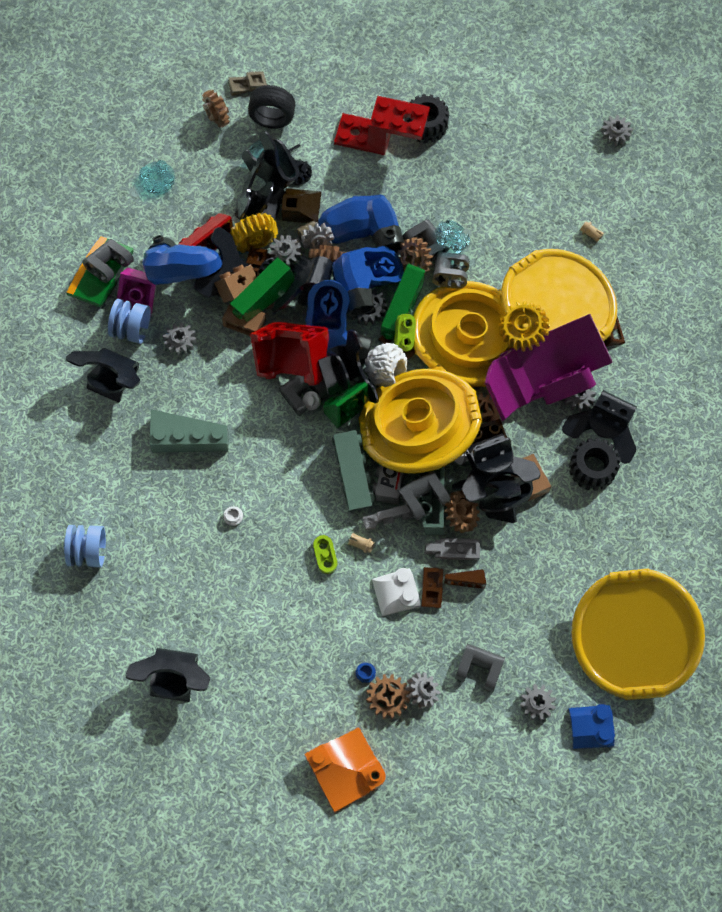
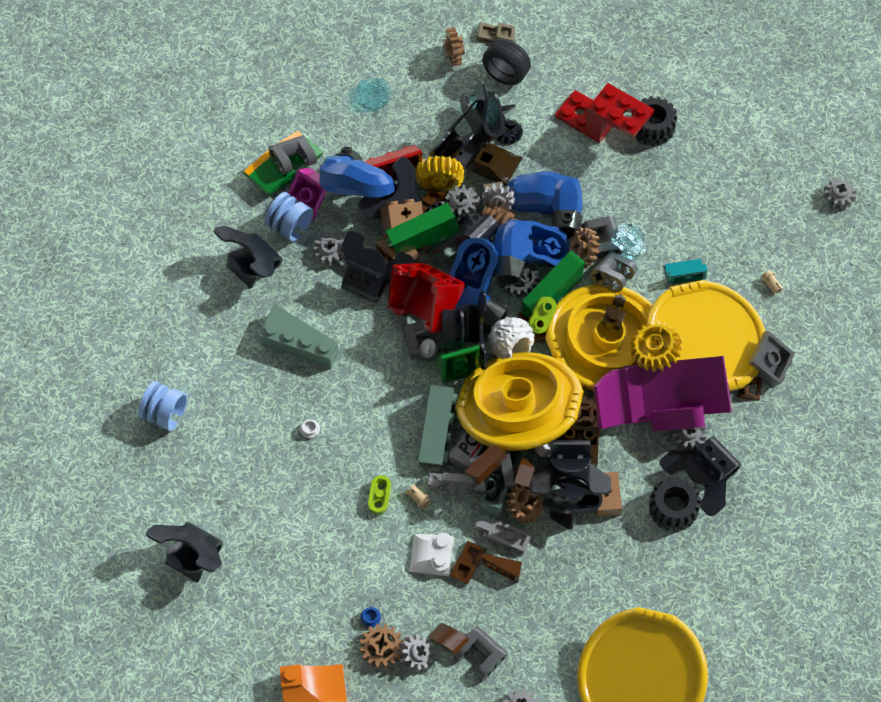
camera: 25 degrees right, 5 degrees down
(224, 344) = (367, 269): none -> black piece
(417, 490) = (486, 464): none -> reddish brown slope
(447, 665) = (448, 638): none -> reddish brown slope
(455, 485) = (524, 472): none -> reddish brown slope
(471, 311) = (613, 316): none -> dark brown plate
(512, 247) = (686, 271): none -> teal panel
(624, 301) = (771, 359): none -> dark grey plate

